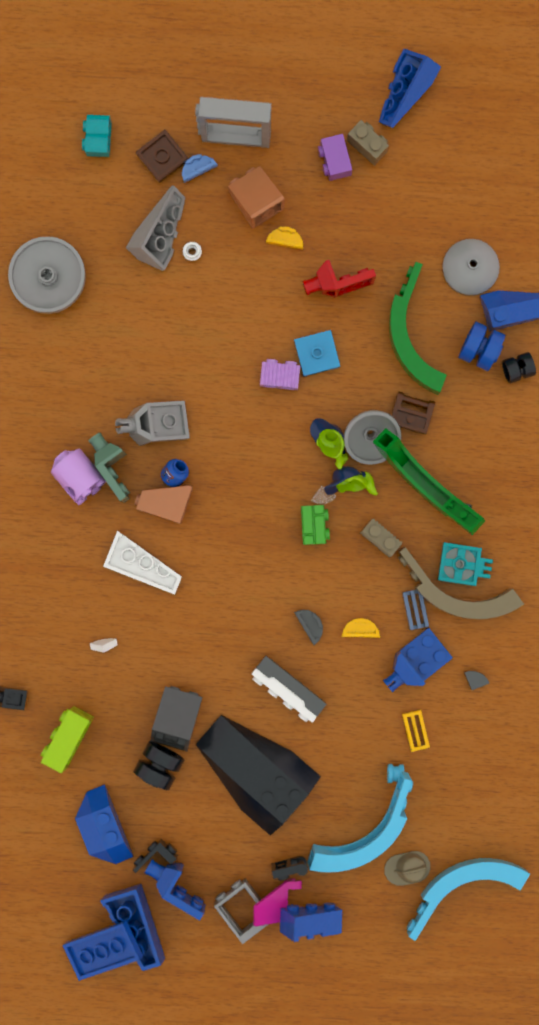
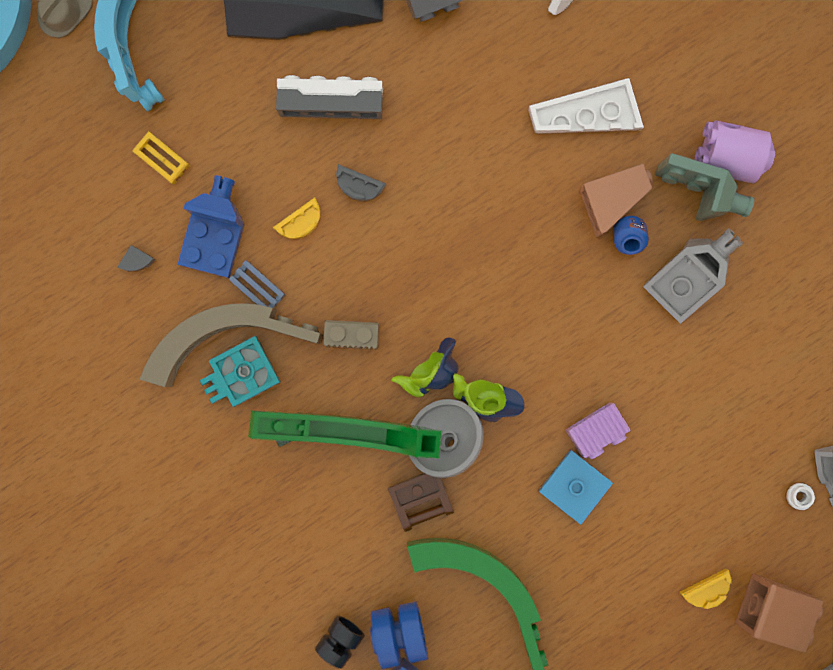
camera: 150 degrees right, 0 degrees up
(313, 525) = (435, 294): bright green brick -> none
(321, 497) = (449, 330): clear tile -> none
(328, 285) = (605, 586): red plate -> none

